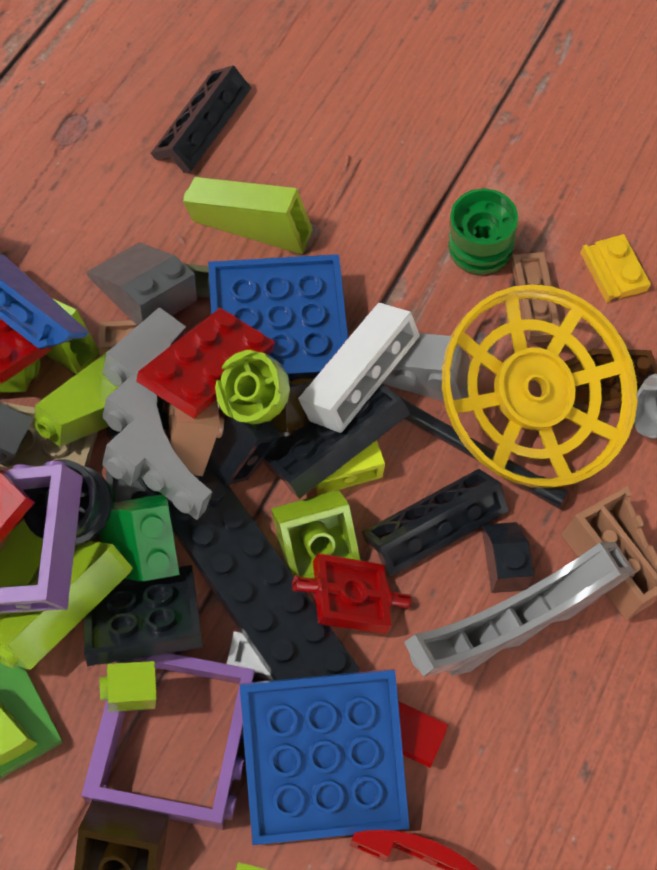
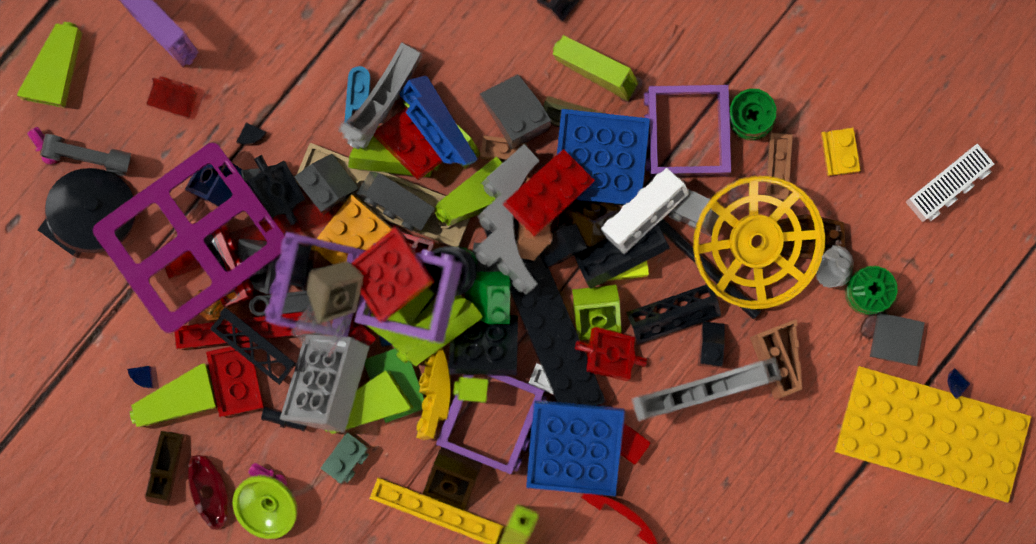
camera: 15 degrees right, 20 degrees up
(73, 706) = (436, 385): none -> yellow slope
(252, 387) = (573, 224): lime cylinder -> none
(400, 219) = (724, 130): none -> medium lavender window

